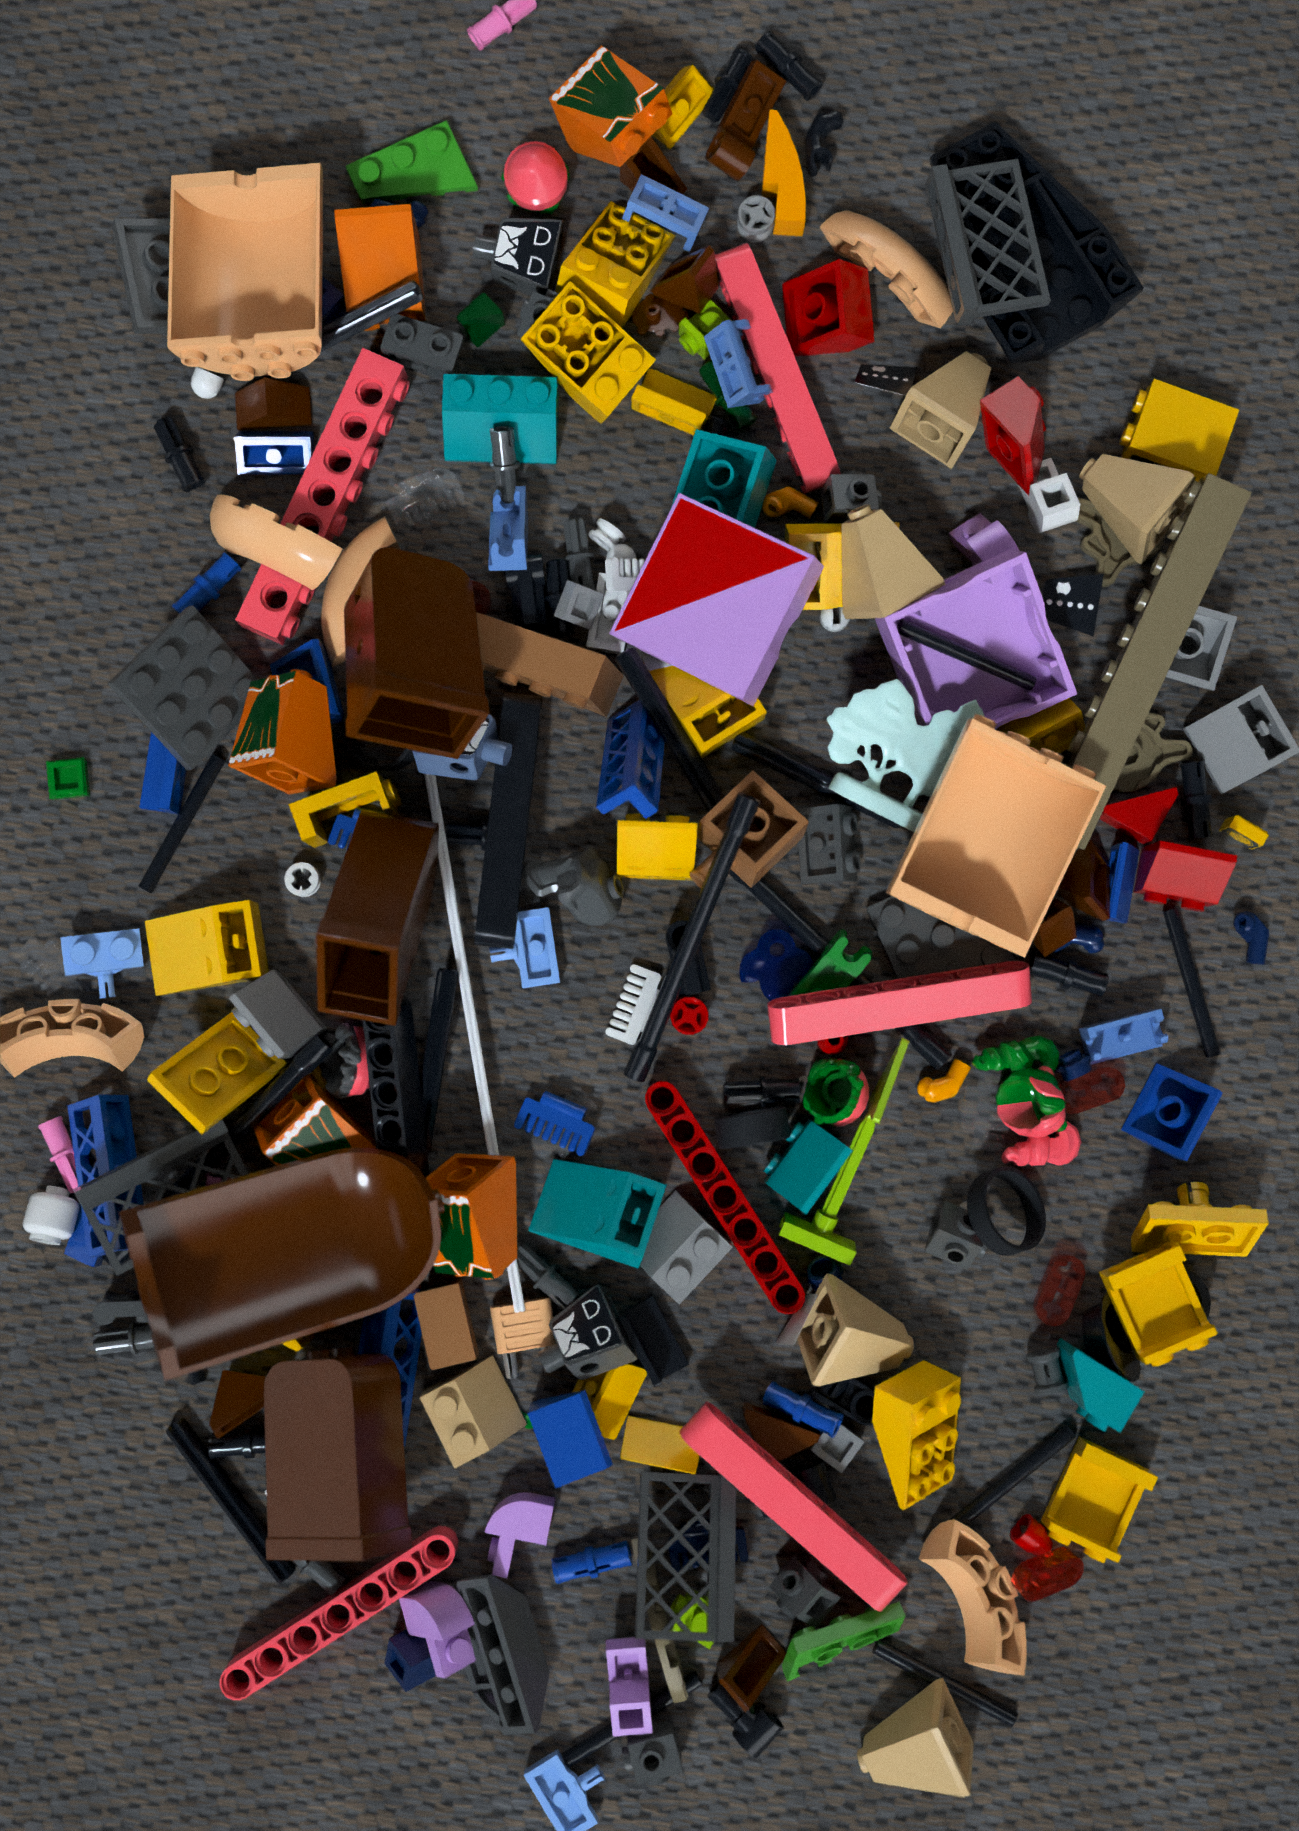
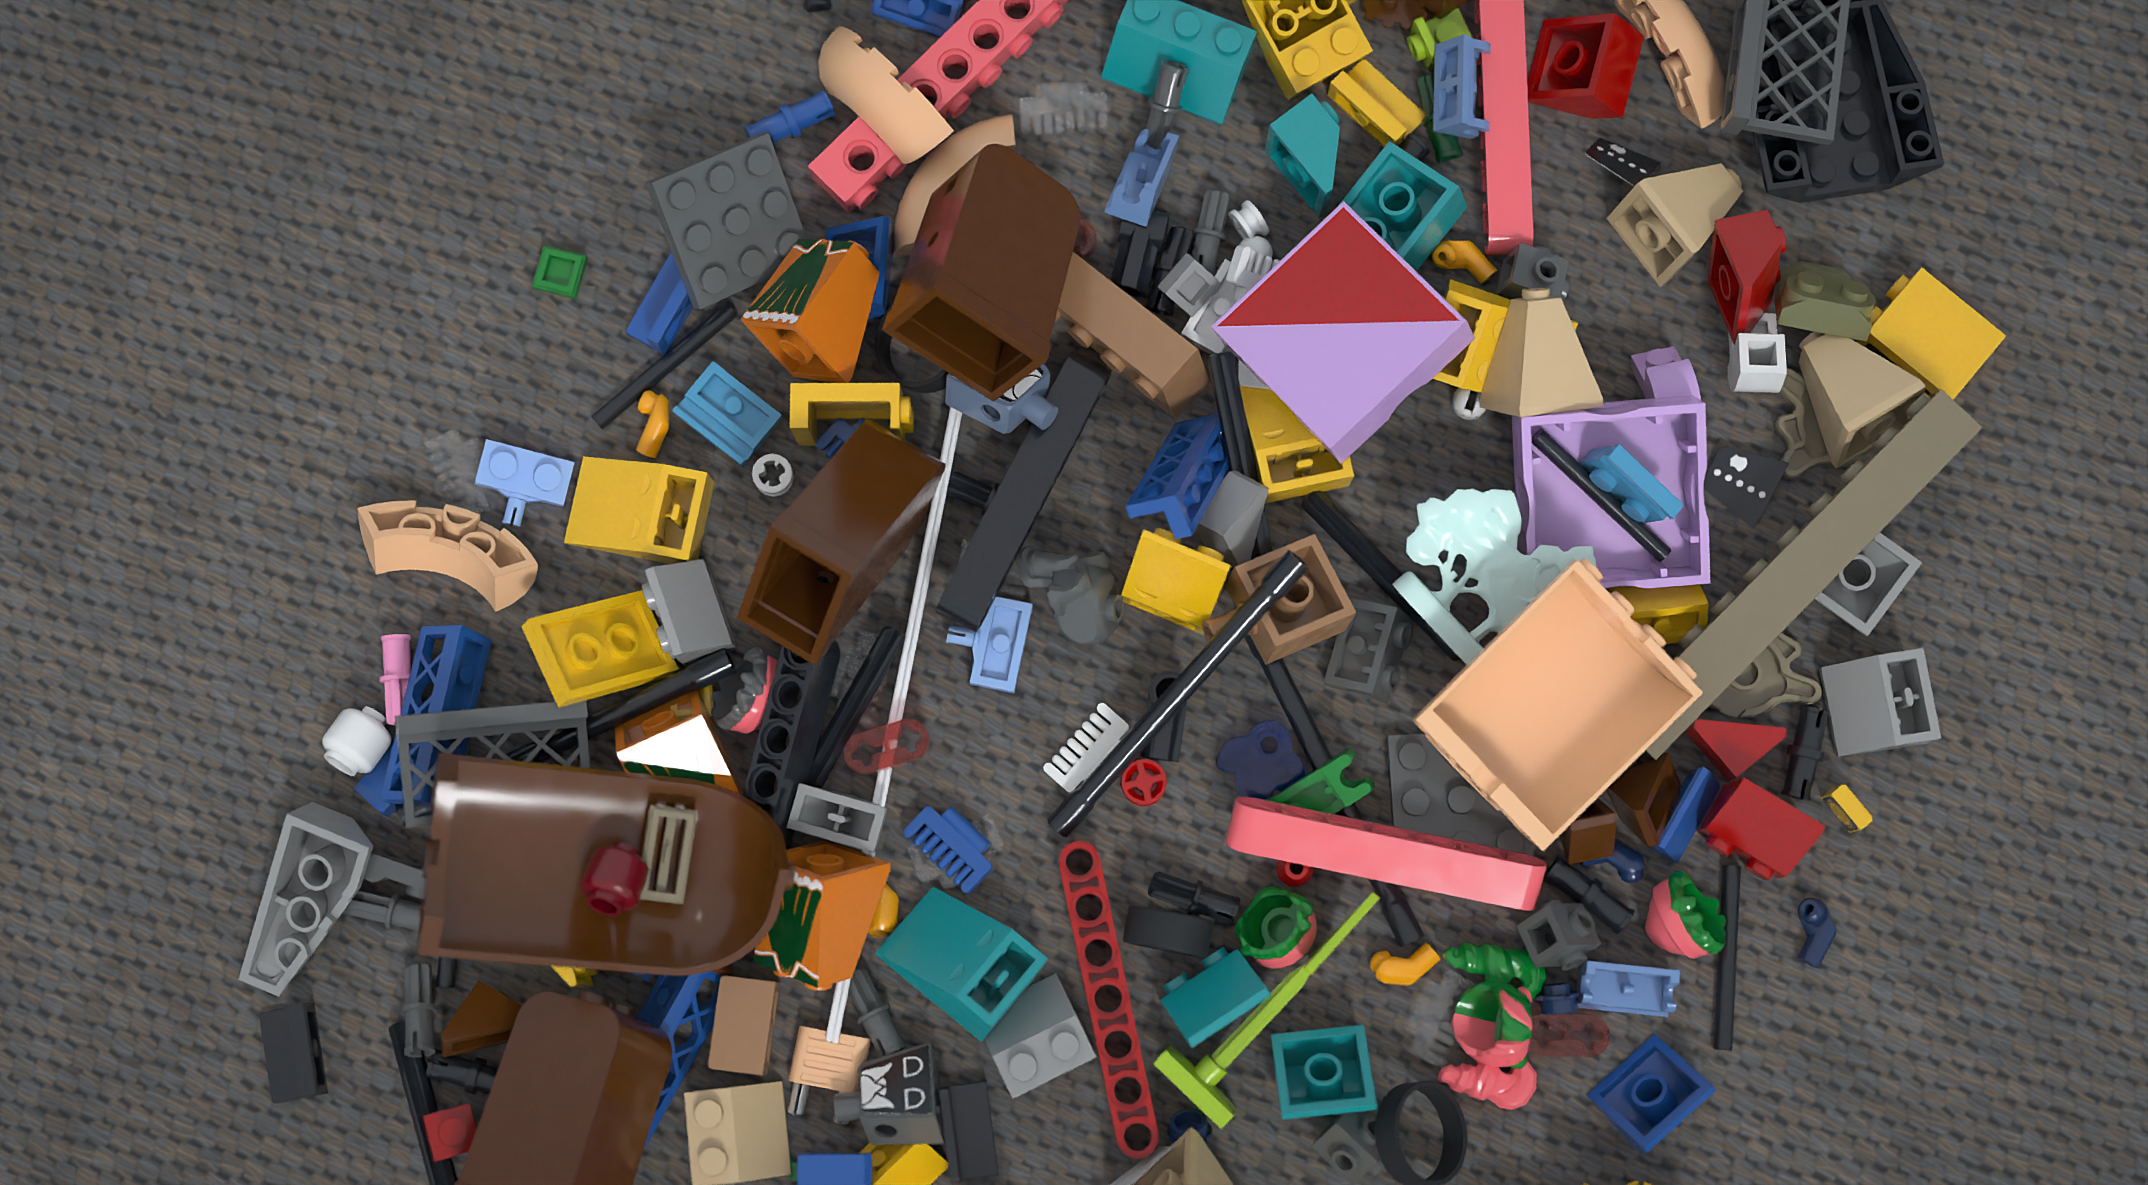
camera: 25 degrees right, 5 degrees down
(57, 1349) = (307, 889): none -> light grey wedge
(98, 1479) = (293, 1052): none -> black panel
(185, 1412) = (418, 1010): none -> dark grey axle
(194, 873) = (657, 425): none -> light orange arm
(246, 1495) = (450, 1132): none -> red plate
(247, 844) = (728, 414): none -> dark azure plate
(299, 1255) = (614, 879): none -> dark red head
(326, 1185) = (671, 815): none -> dark tan tile
(458, 1134) = (837, 817): none -> light grey slope
(470, 1057) = (883, 736): none -> clear red beam
(525, 1194) = (886, 914): none -> light orange arm
(632, 460) = (1305, 150): none -> teal slope
(684, 780) = (1234, 518): none -> light grey slope
(914, 1193) = (1323, 1072): none -> teal slope
(988, 637) = (1631, 483): none -> dark azure plate
(1057, 1015) = (1559, 935): none -> dark grey brick
(1086, 434) = (1823, 301): none -> olive slope
(1149, 965) = (1684, 919): none -> hair

